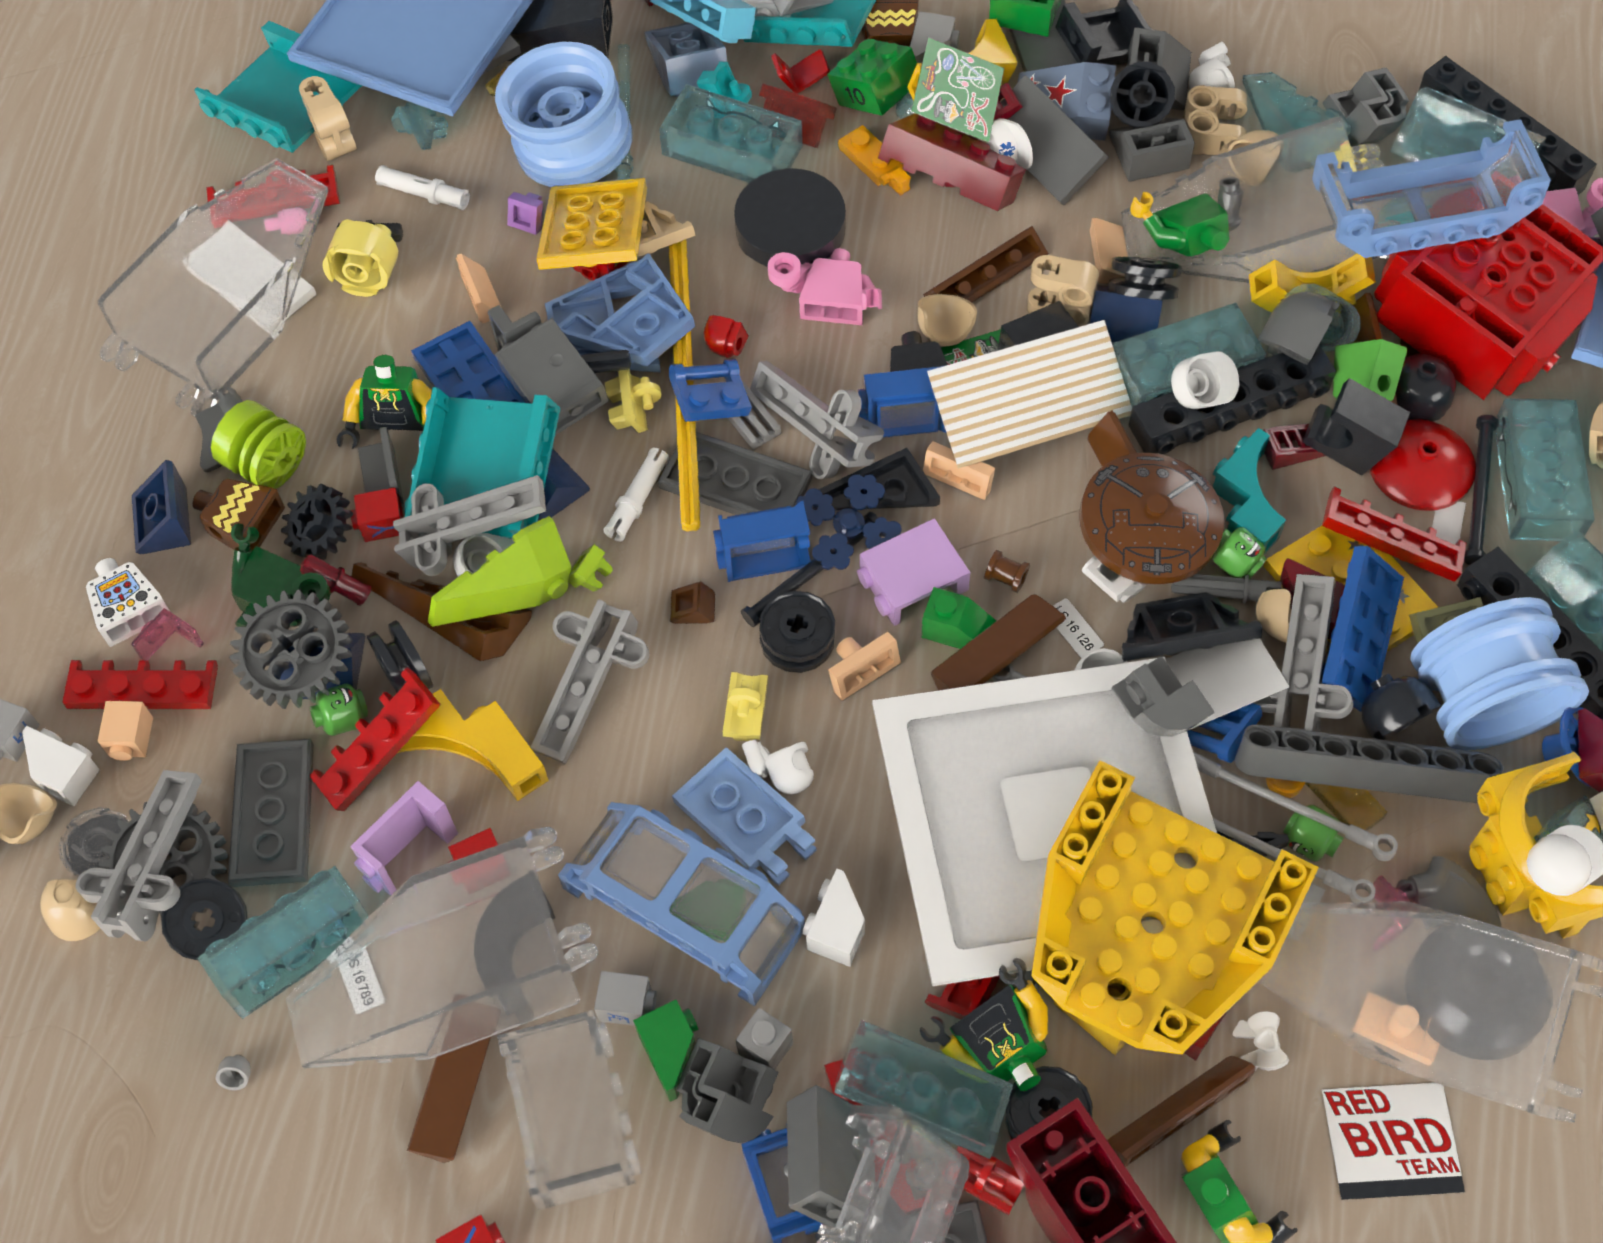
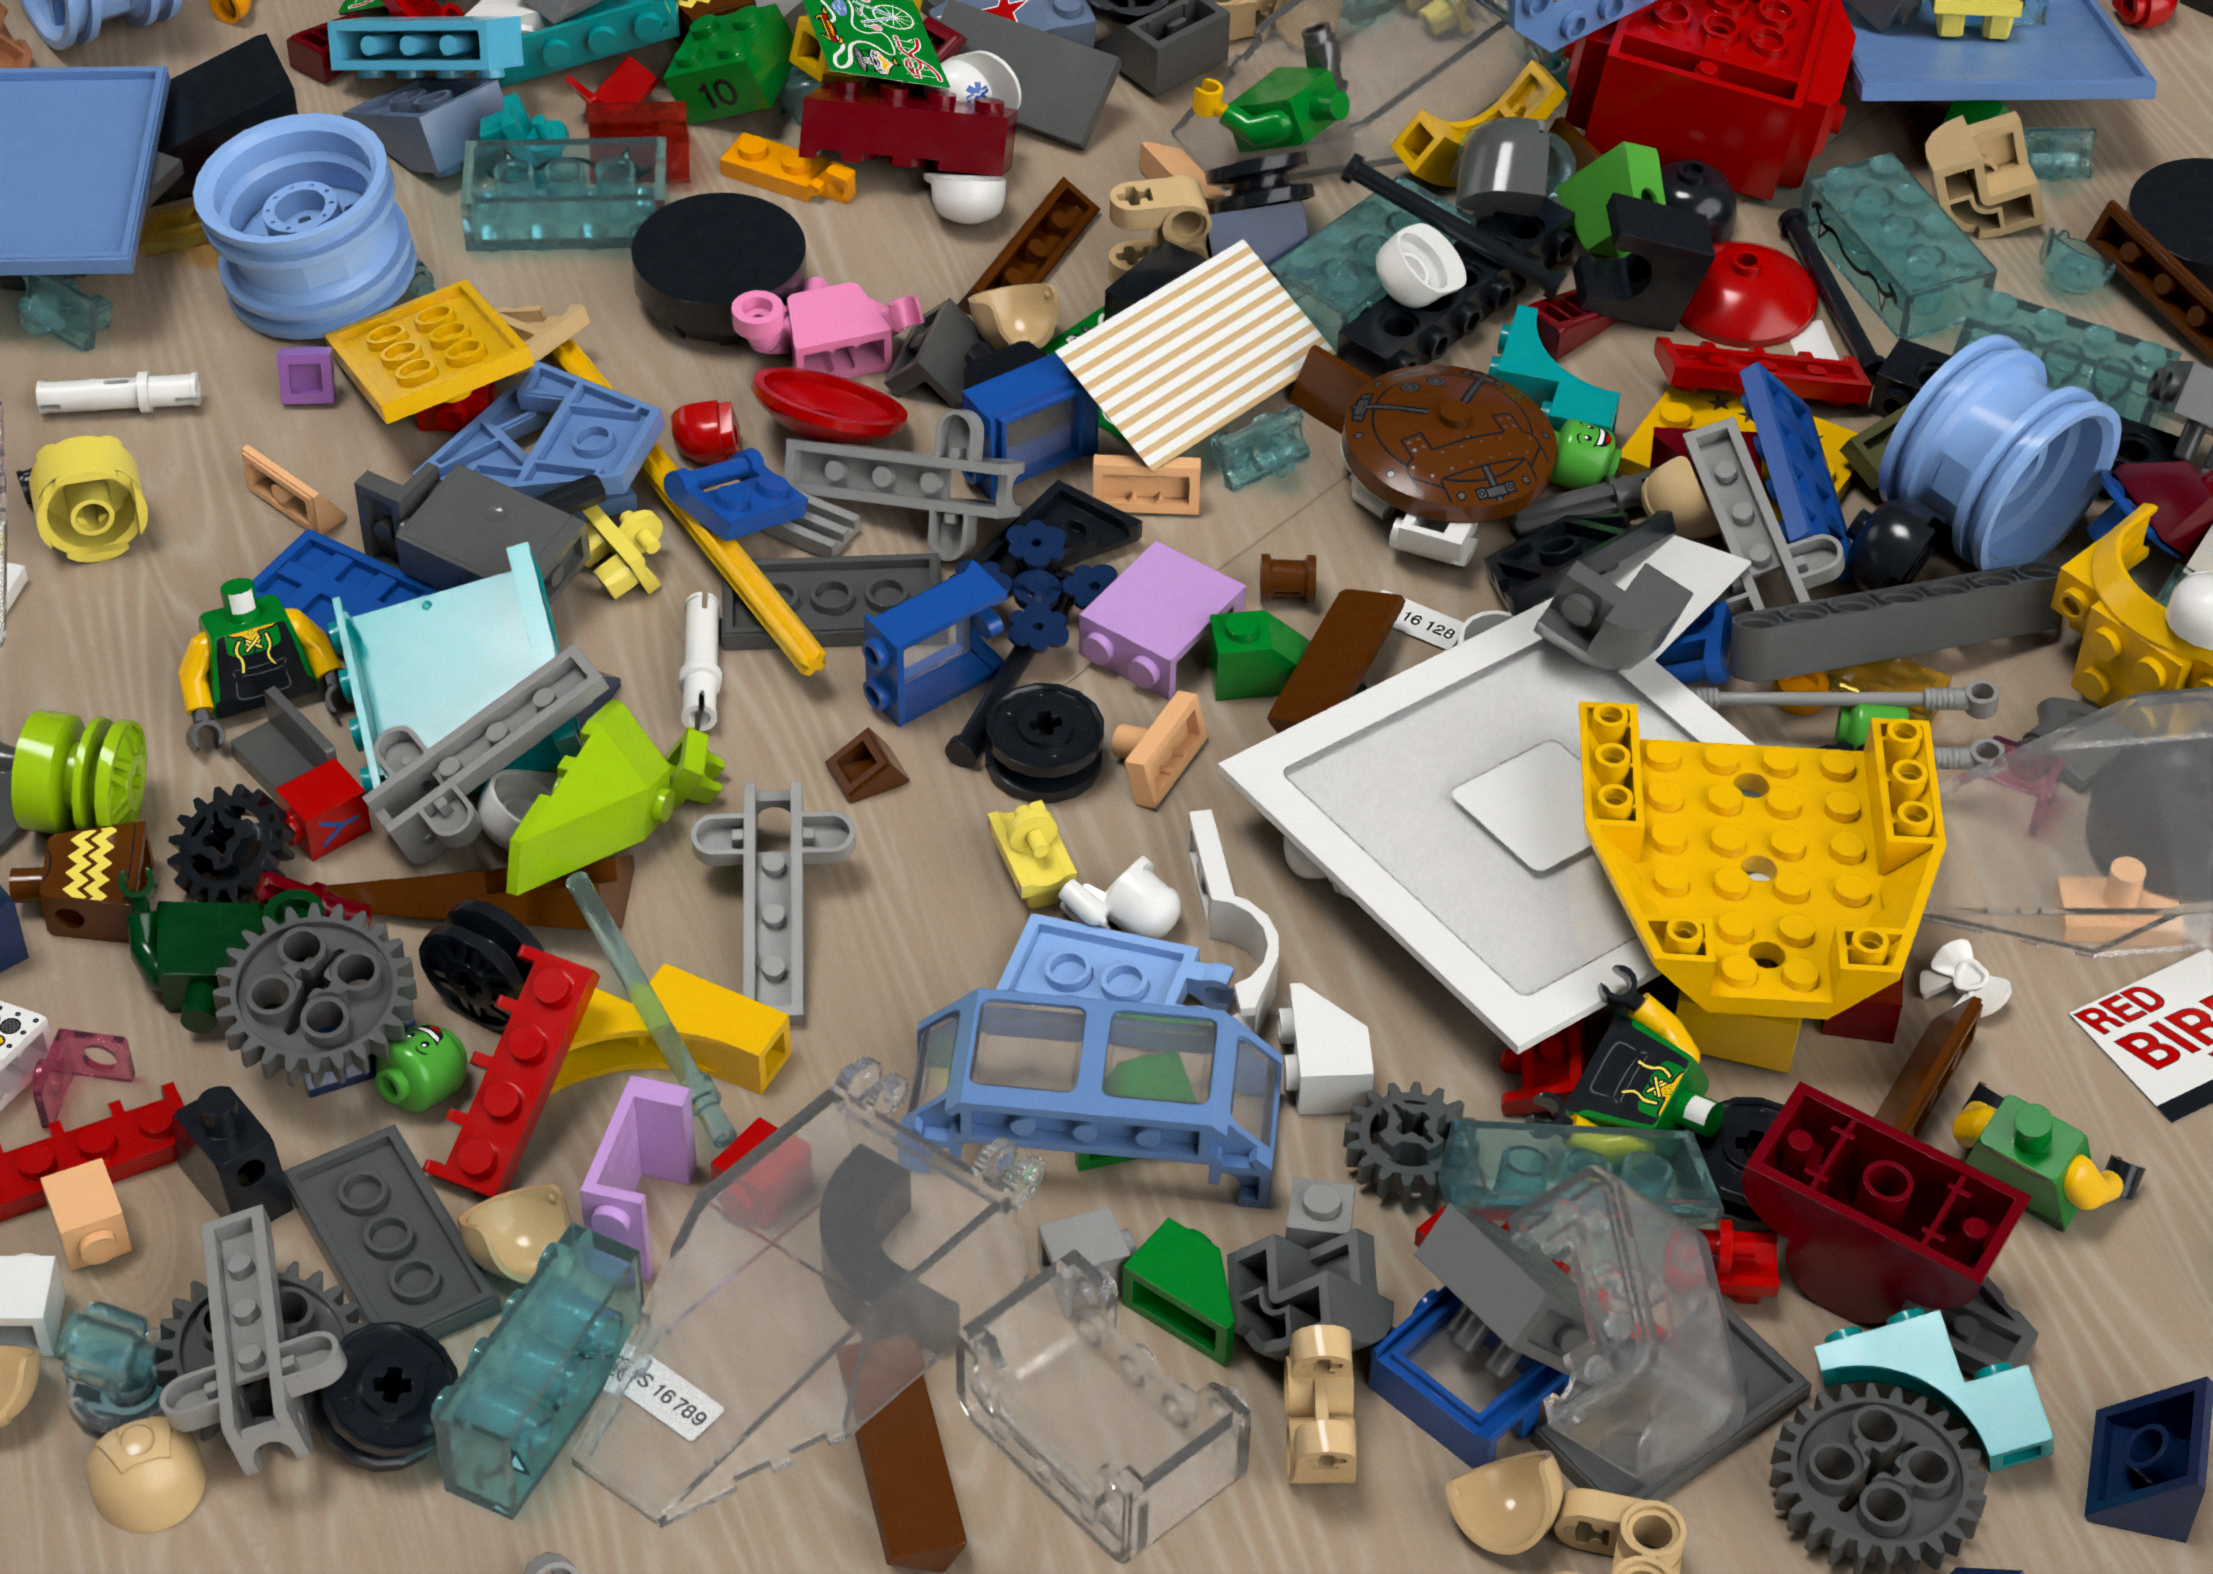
camera: 30 degrees left, 15 degrees down
(82, 823) = (105, 1347): none -> clear light blue head
(205, 719) = (222, 1139): none -> black torso
(326, 841) = (514, 1229): none -> tan helmet
(464, 796) = (704, 1092): none -> clear light blue bar
(690, 1175) = (1320, 1407): none -> tan piece
(799, 343) = (827, 406): none -> red dish
(817, 865) = (1233, 920): none -> white piece
(838, 1008) = (1409, 1140): none -> dark grey gear
(886, 326) = (935, 353): none -> dark grey panel
(966, 217) = (967, 196): none -> white cap
(1044, 470) = (1264, 448): none -> clear light blue hips
(1243, 358) = (1453, 226): none -> black bar

